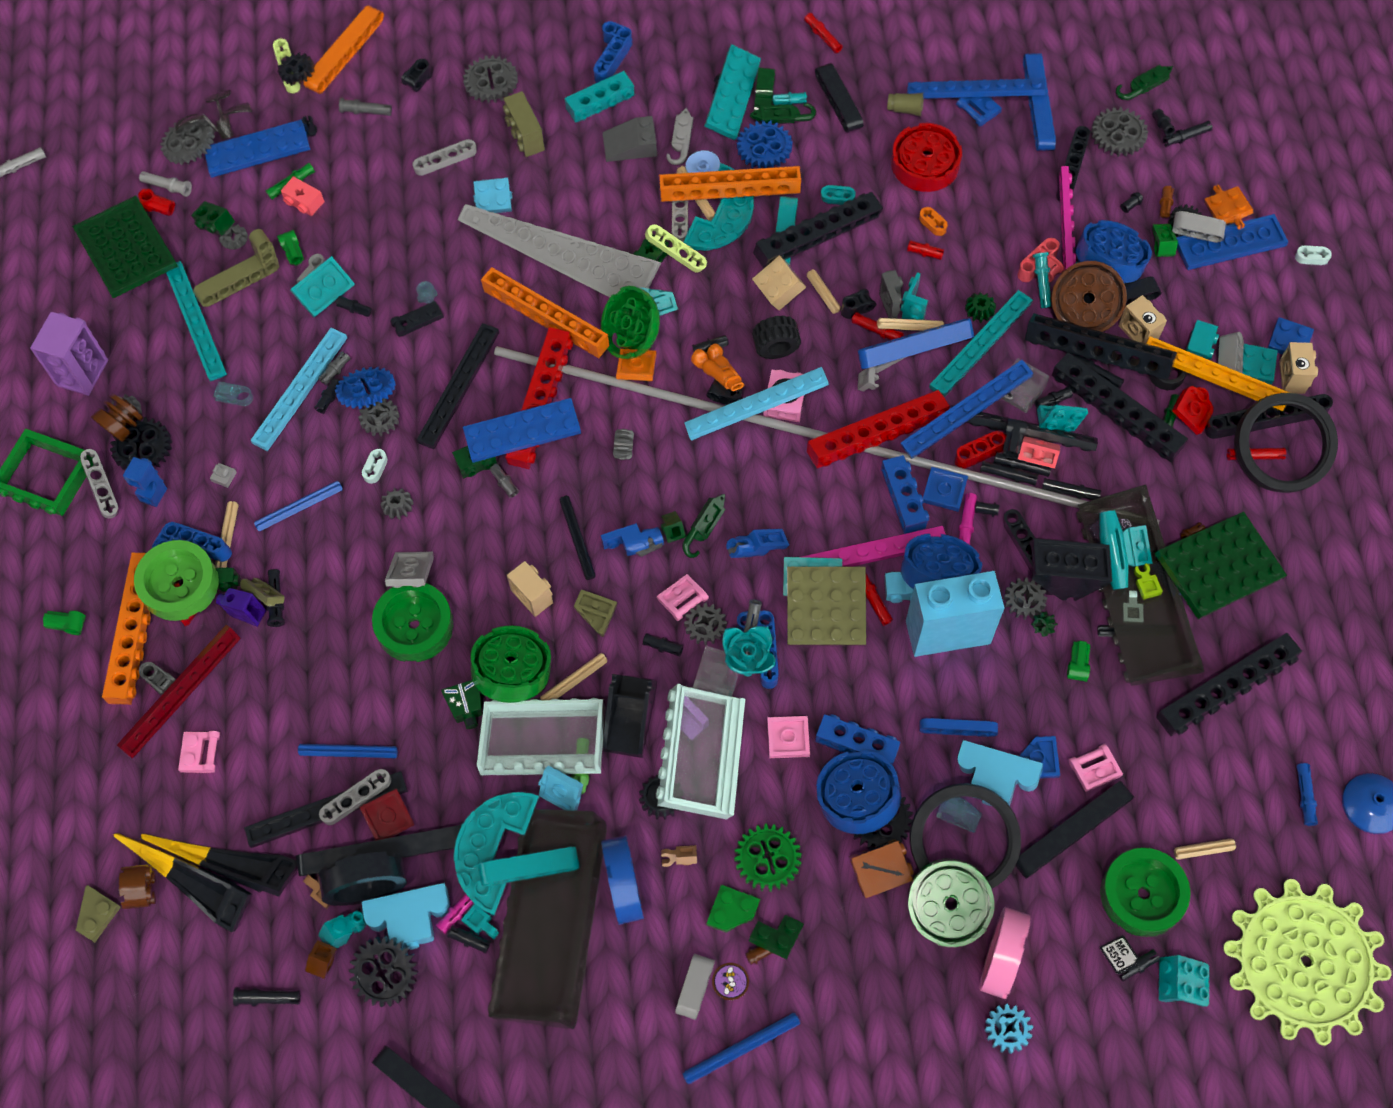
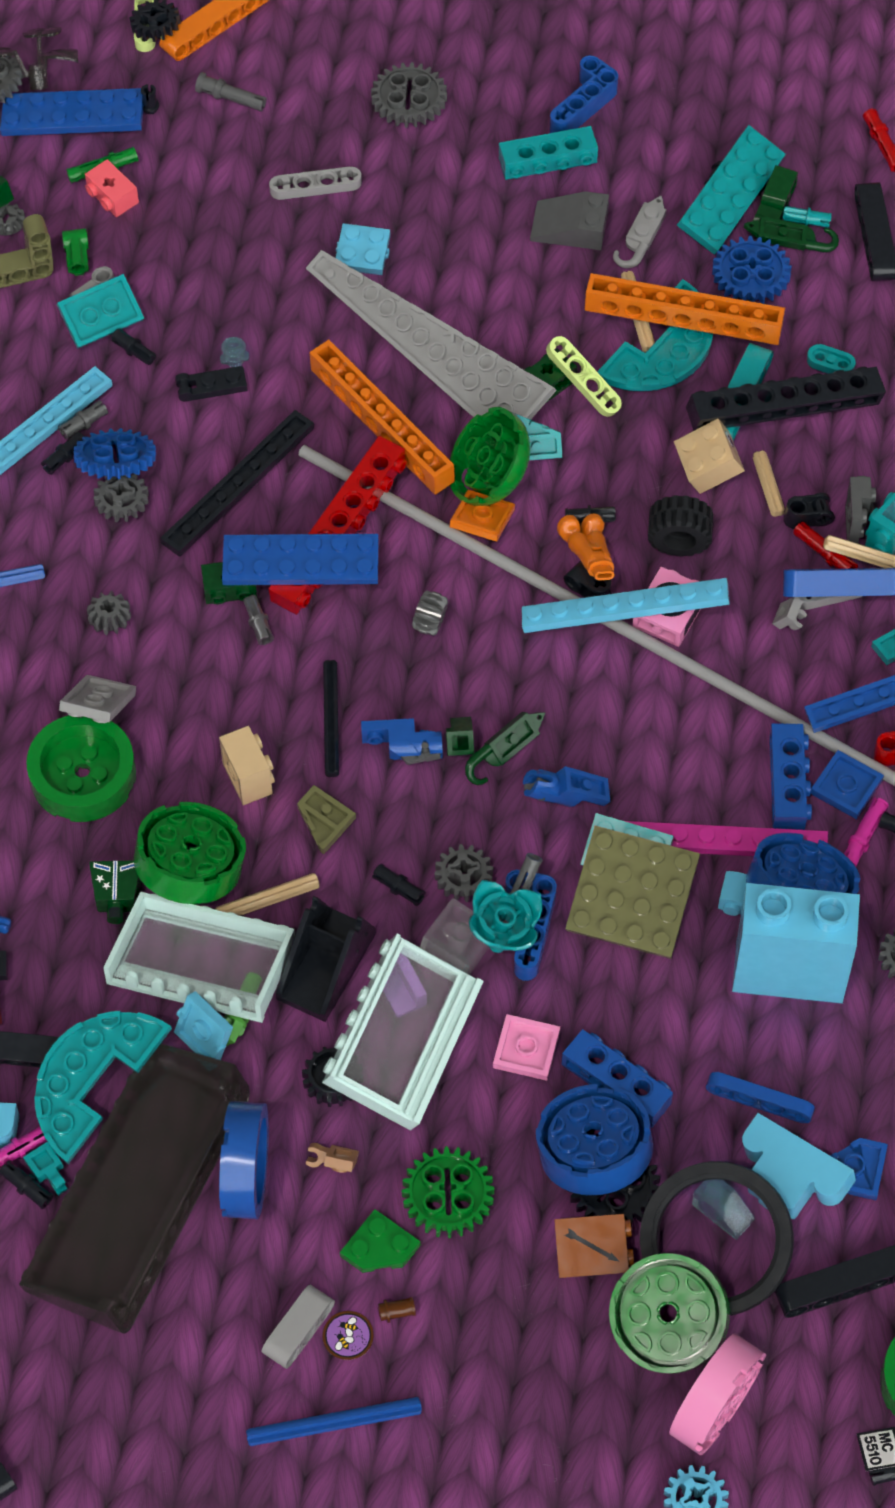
camera: 15 degrees right, 5 degrees down
(371, 465) = (98, 559): light aqua beam -> none
(417, 74) = (314, 66): black piece -> none
(523, 124) = (432, 164): olive brick -> none
(528, 866) = (130, 1112): teal beam -> none
(679, 593) = (441, 824): bright pink plate -> none
(680, 212) = (604, 330): light grey beam -> none
(702, 162) = (659, 271): light blue dish -> none
(780, 940) = (427, 1300): dark green plate -> none
(876, 429) = (776, 680): red brick -> none
(877, 603) = (703, 906): red pin -> none

